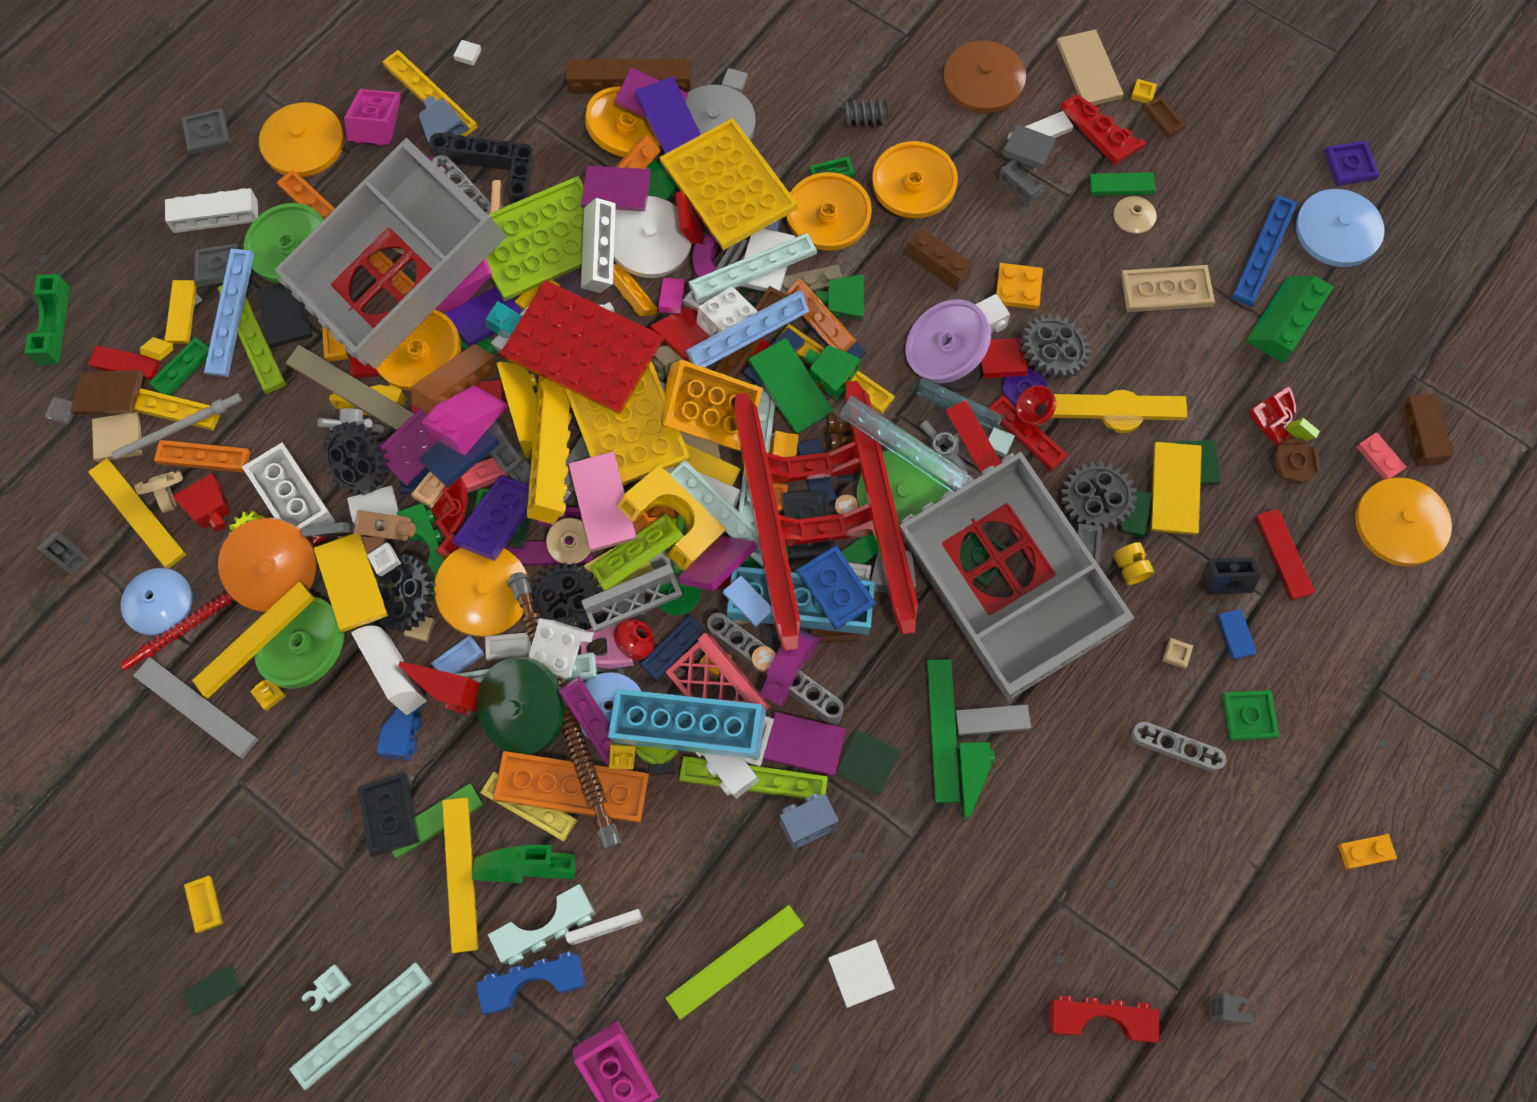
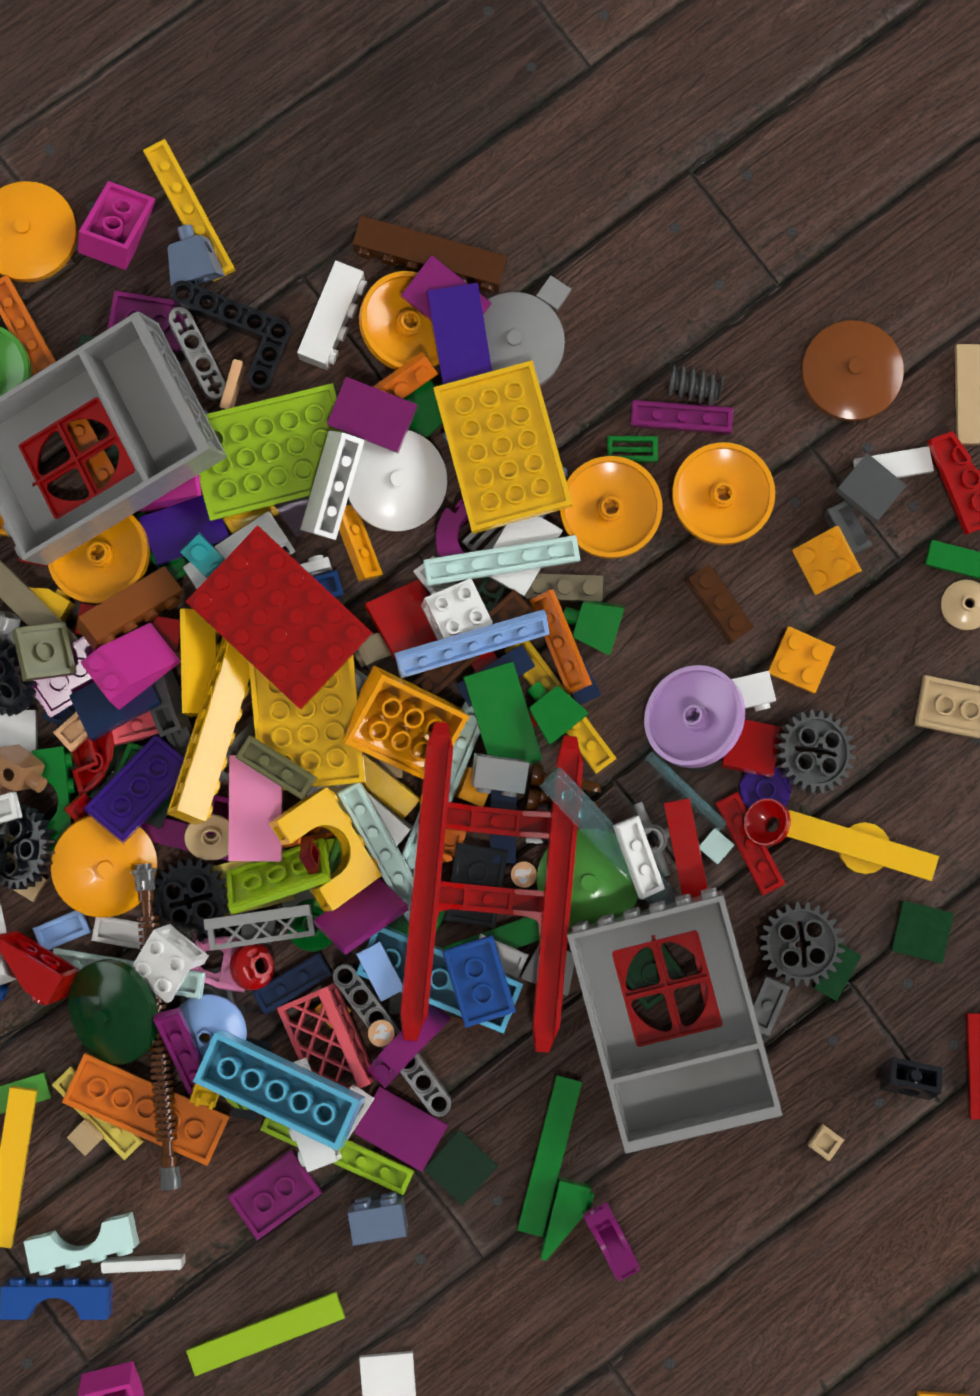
camera: 10 degrees right, 15 degrees up
(388, 422) = (44, 651): none -> olive plate
(467, 52) = (246, 164): white tile -> none
(519, 861) = (77, 1175): green slope -> none
(522, 829) = (85, 1137): none -> tan tile
(563, 136) = (331, 316): none -> white brick
(611, 460) = (276, 767): none -> olive tile
(659, 519) = (309, 855): none -> dark red tile
(671, 295) = (401, 563): dark pink tile -> none
(689, 221) = (444, 480): red tile -> none
(708, 834) = (274, 1194): none -> magenta tile
(801, 426) = (499, 774): none -> light grey brick
(862, 140) = (681, 417): none -> magenta tile
(939, 456) = (638, 857): none -> white tile
(992, 720) = (604, 1159): light grey tile -> none
(1013, 206) = (827, 560): none -> light orange plate
(1021, 783) = (612, 1241): none -> magenta arch
(1133, 563) = (812, 1043): yellow wheel -> none
(1176, 488) = (890, 957): yellow tile -> none
(1177, 749) = (787, 1245): light grey beam -> none
(1236, 634) = (895, 1140): blue tile -> none
(1250, 715) = (877, 1231): green tile -> none

